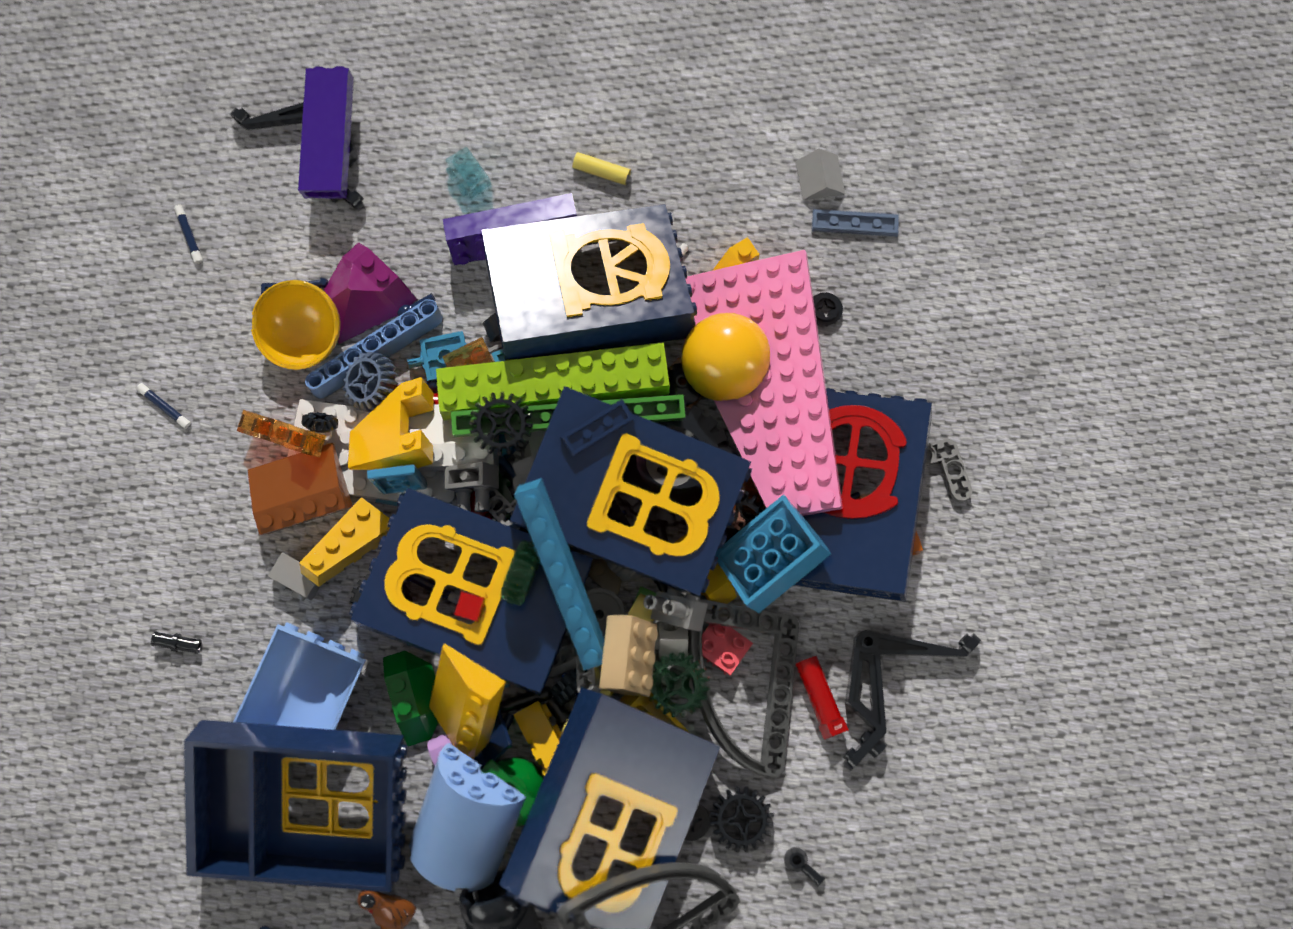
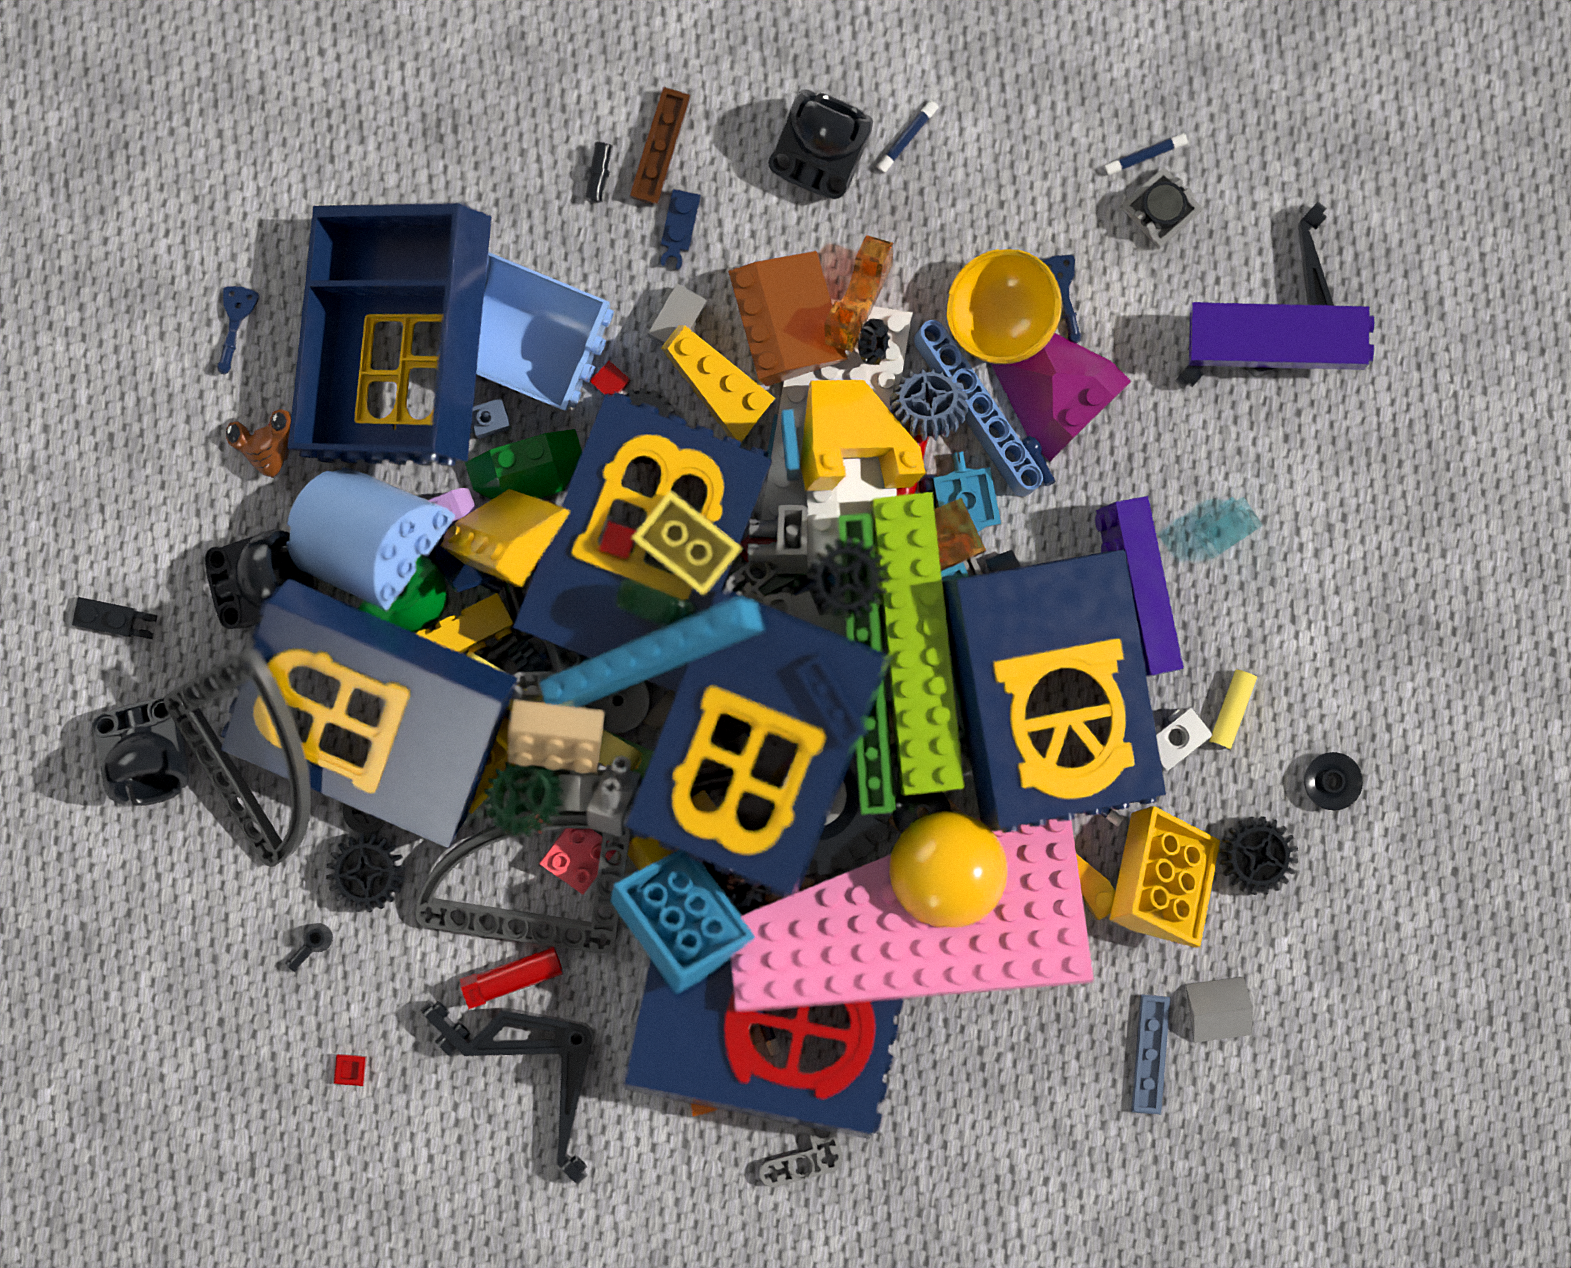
camera: 85 degrees right, 10 degrees up
(158, 593) = (660, 146): none -> reddish brown plate
(161, 465) = (822, 142): none -> black piece
(223, 577) = (679, 225): none -> dark blue plate
(228, 221) = (1162, 207): none -> piece
(344, 630) = (609, 379): none -> red tile
(372, 721) = (490, 419): none -> sand blue brick
(472, 548) = (687, 543): none -> light yellow brick
(618, 195) = (1193, 735): none -> white brick
(656, 92) = (1348, 779): none -> black dish
(694, 140) = (1252, 867): none -> black gear
(726, 209) = (1165, 878): none -> yellow slope
(831, 301) = (1036, 1016): black gear -> none
(901, 829) = (350, 1069): none -> red tile

